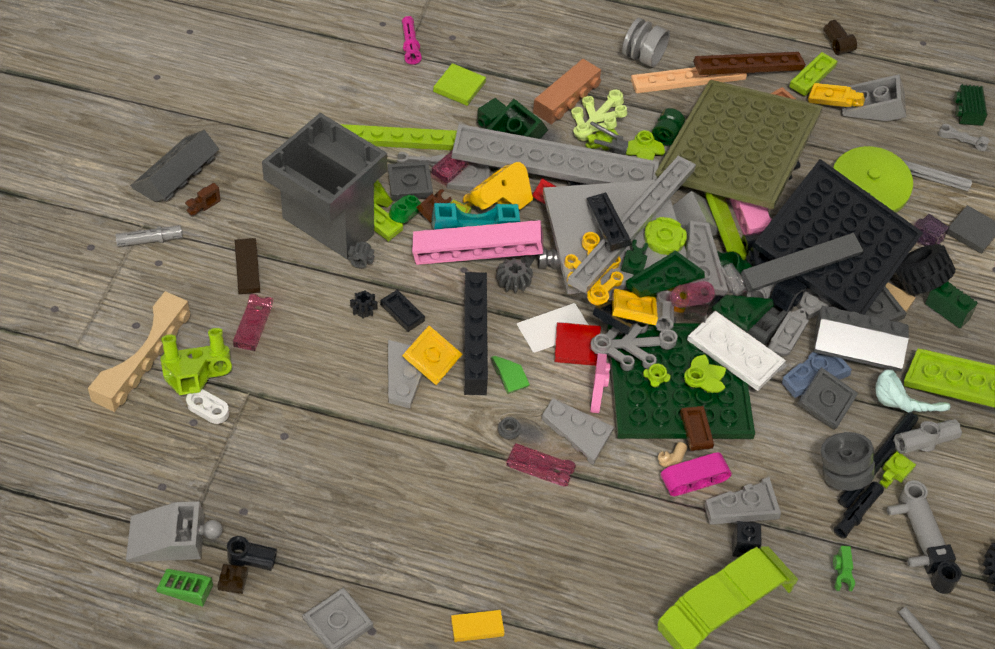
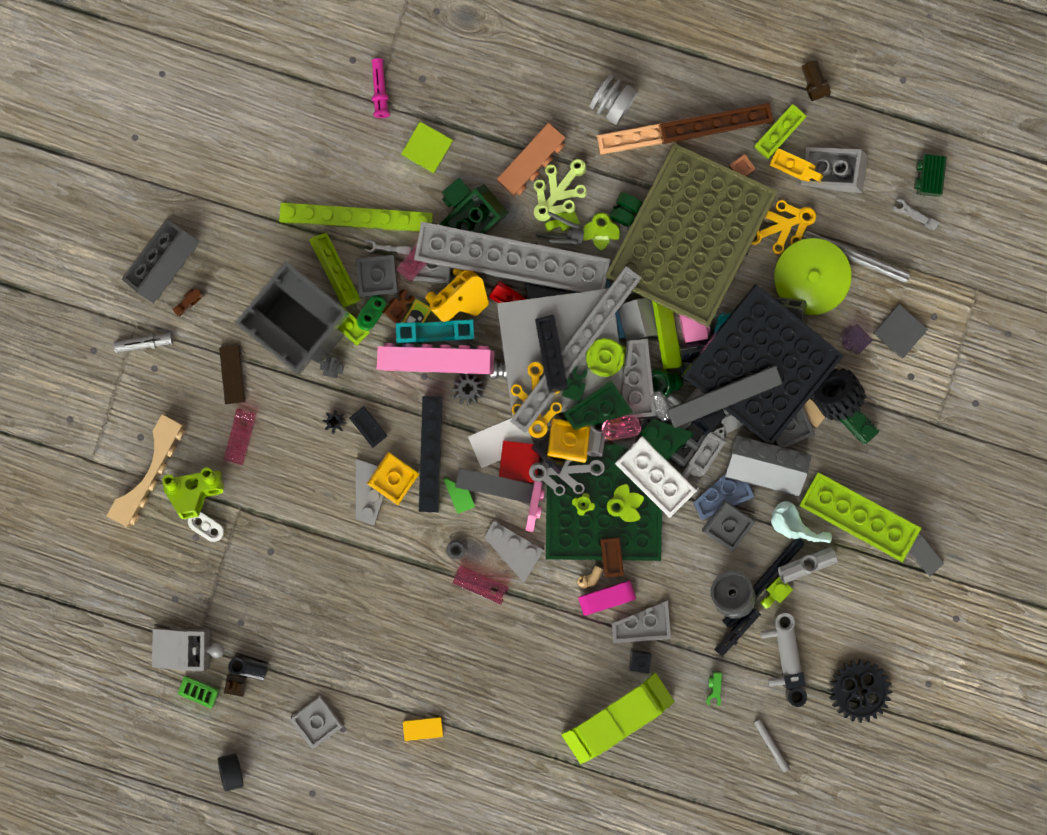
camera: 10 degrees right, 35 degrees up
(552, 357) = (494, 485): none -> dark grey slope
(852, 138) = (784, 224): none -> yellow plant

